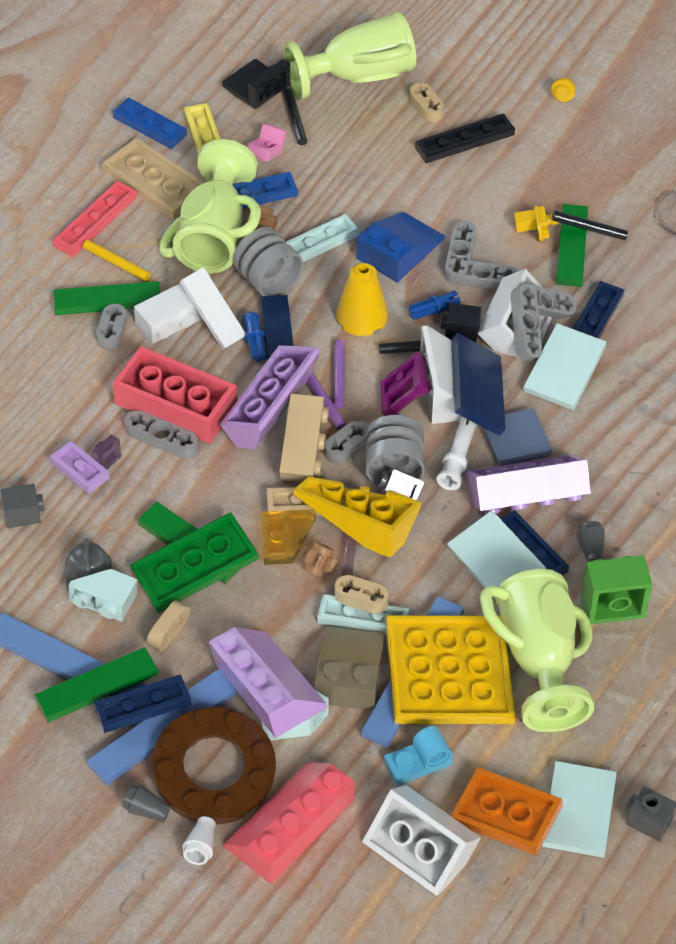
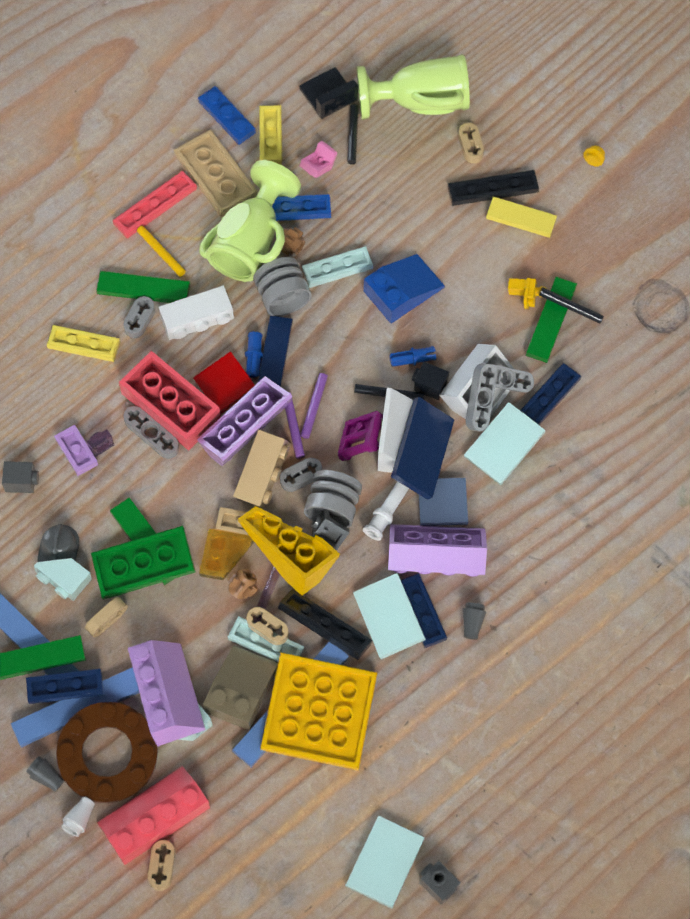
camera: 15 degrees right, 15 degrees up
(54, 364) = (83, 343): none -> light yellow tile
(213, 308) = (223, 322): white tile -> none
(233, 364) = (224, 382): none -> red tile
(309, 871) = (167, 866): none -> tan beam
(362, 302) = (351, 345): yellow cone -> none
(420, 839) = (249, 859): white slope -> none
(422, 758) = (272, 785): medium azure plate -> none
(425, 581) = (325, 624): none -> black tile
(469, 267) = (455, 324): light grey beam -> none
(505, 158) = (521, 217): none -> light yellow tile
(507, 811) = (324, 852): orange plate -> none
(540, 631) = (397, 709): yellowish green piece -> none
(616, 589) = (474, 673): bright green brick -> none

